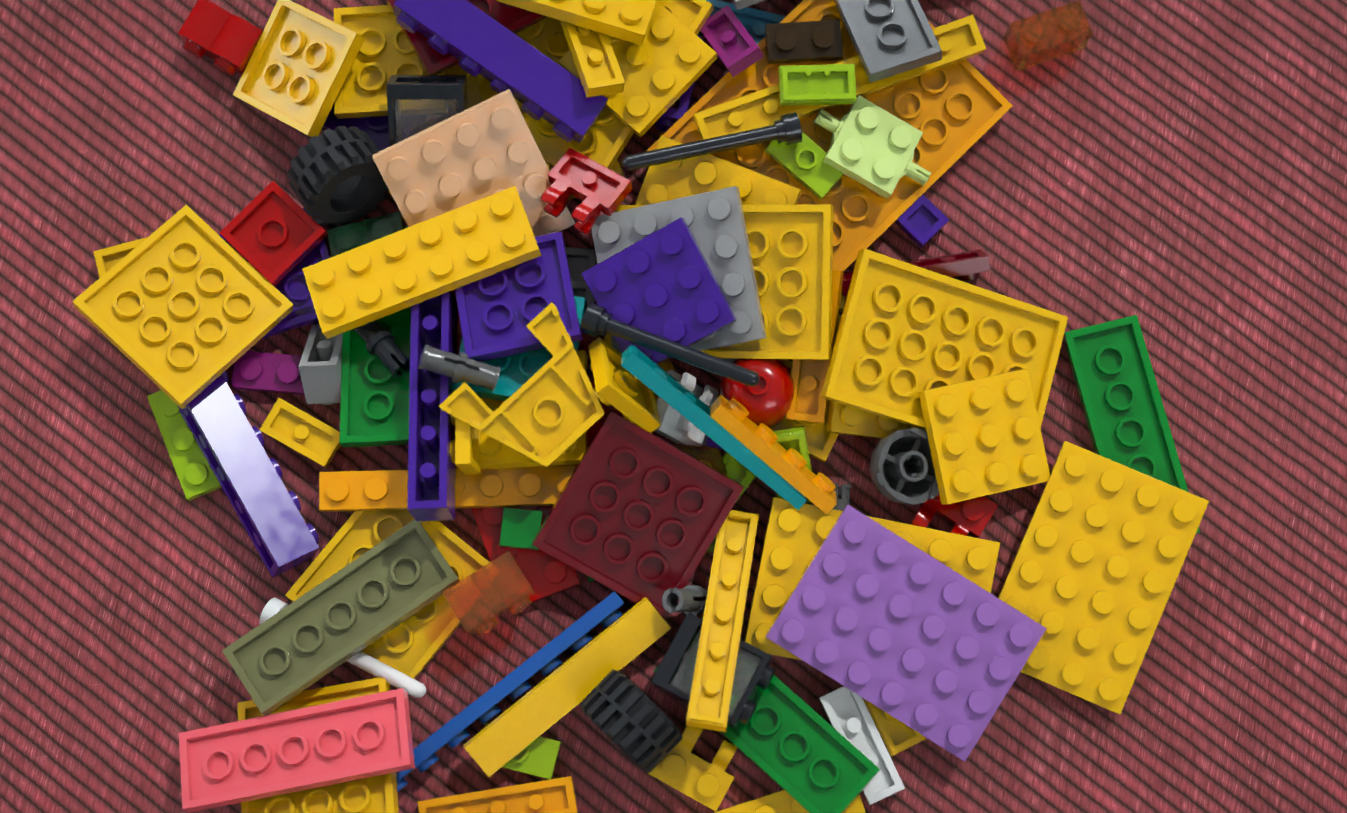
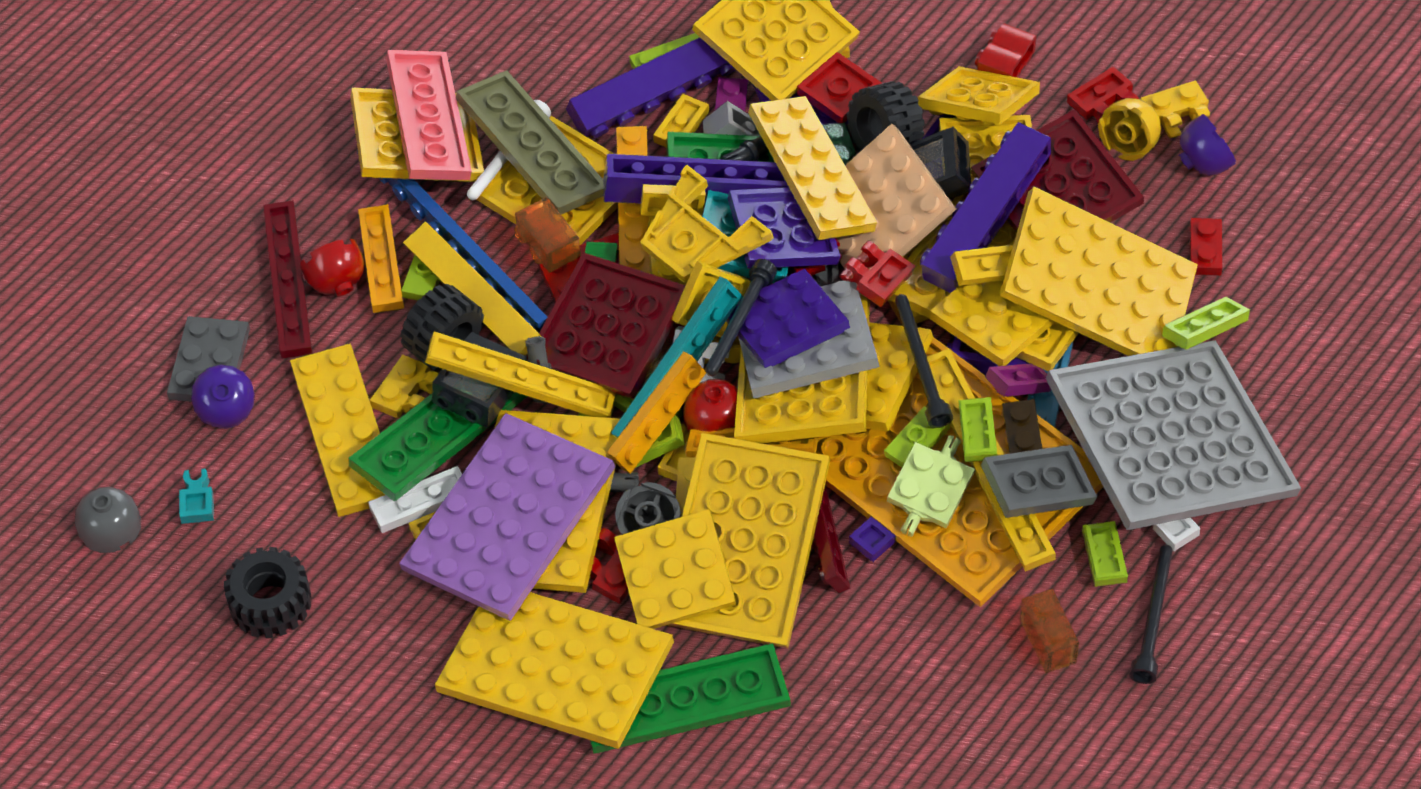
camera: 90 degrees right, 25 degrees down
(459, 367) = (715, 201): dark grey pin -> none

